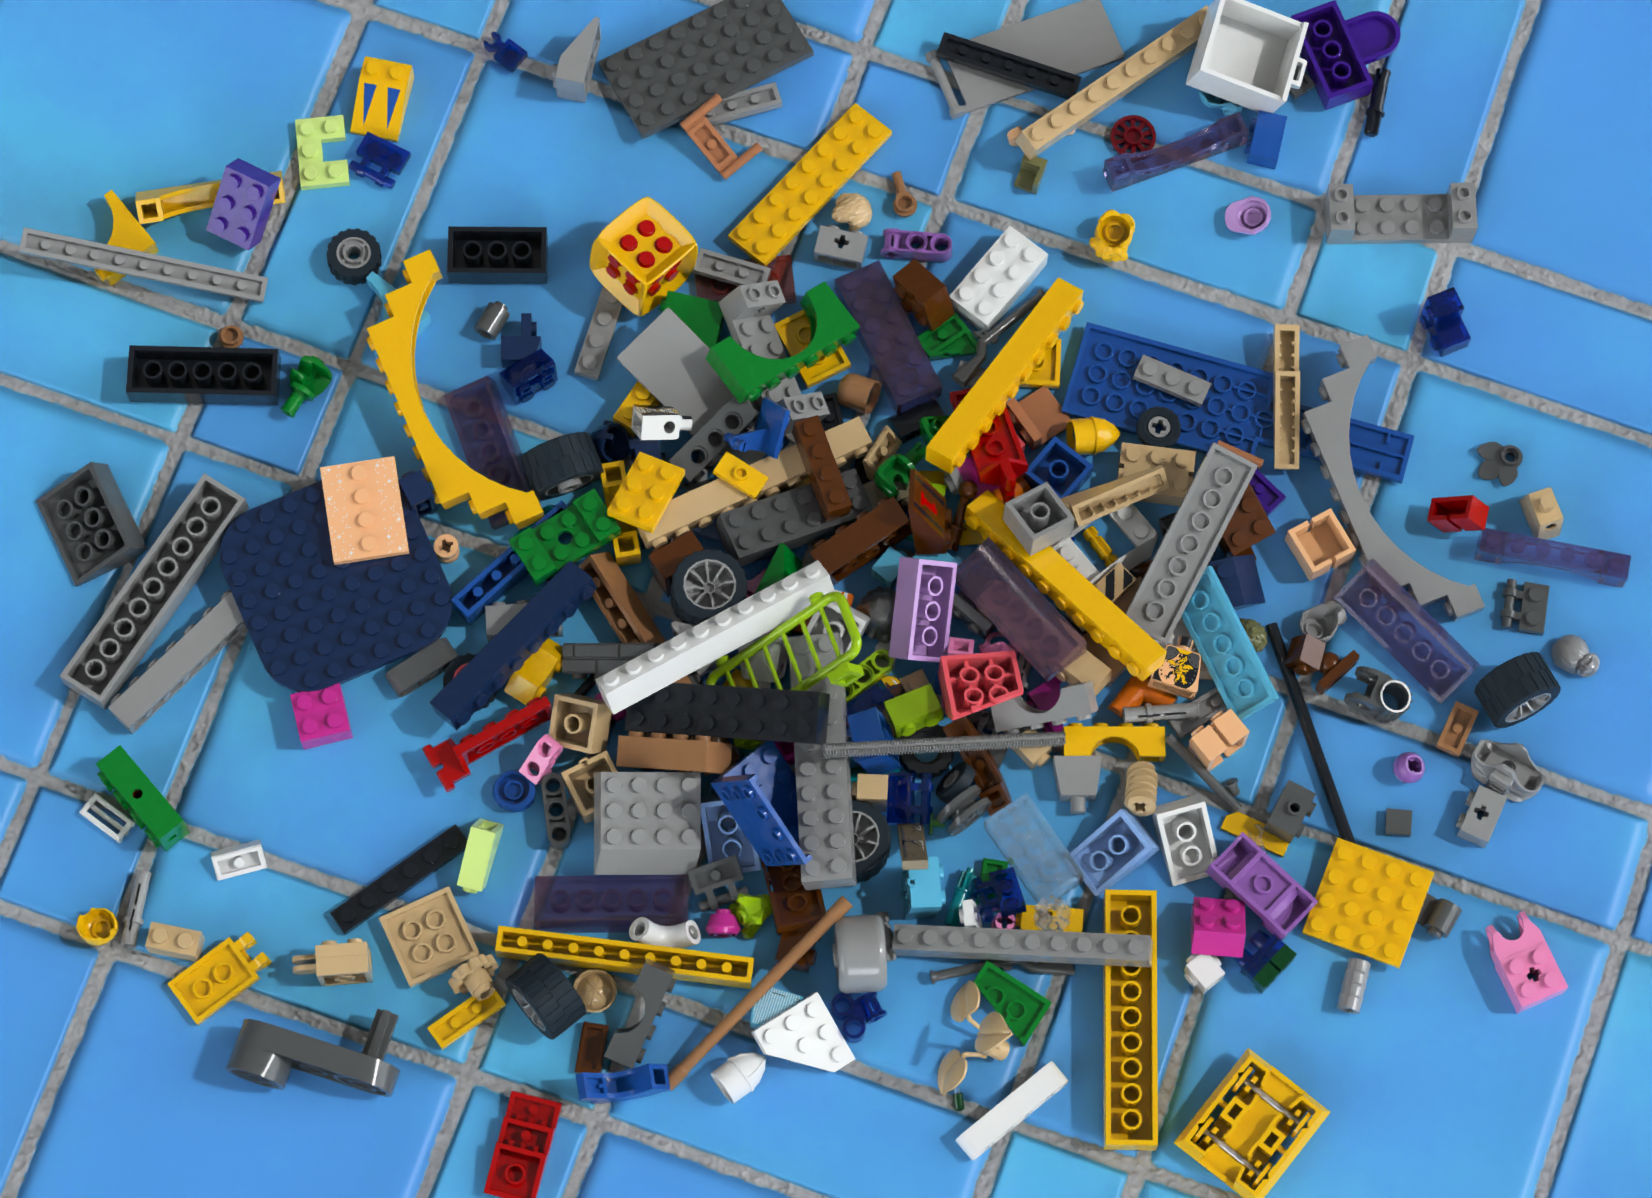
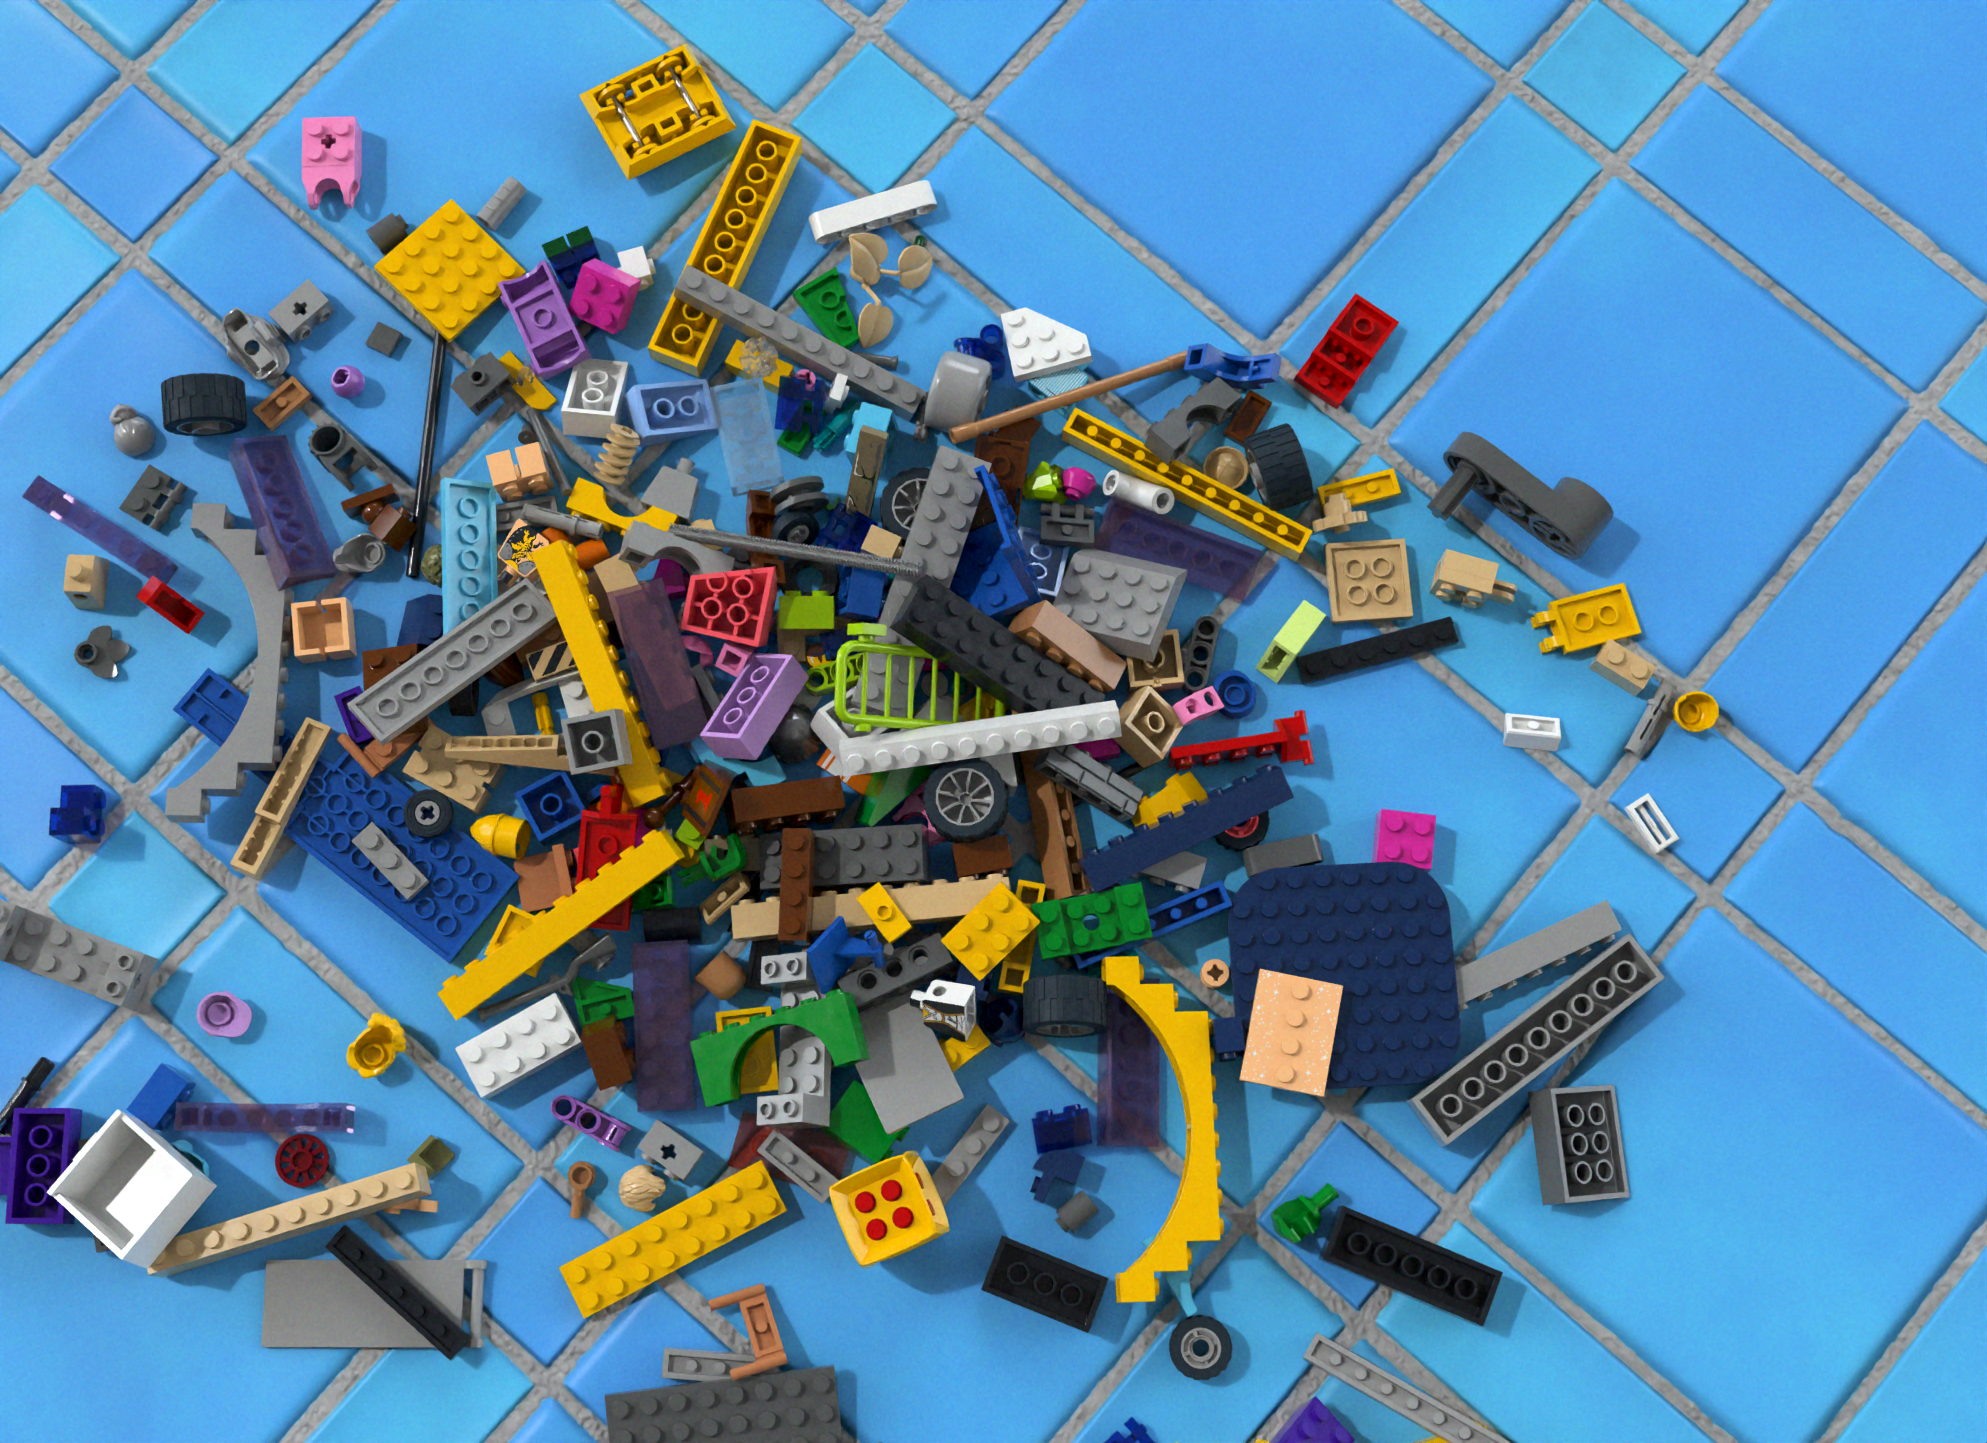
camera: 160 degrees left, 5 degrees up
(140, 795) = (1614, 819): green brick -> none
(231, 337) = (1364, 1305): medium nougat plate -> none
(739, 1075) = (1117, 335): white helmet -> none

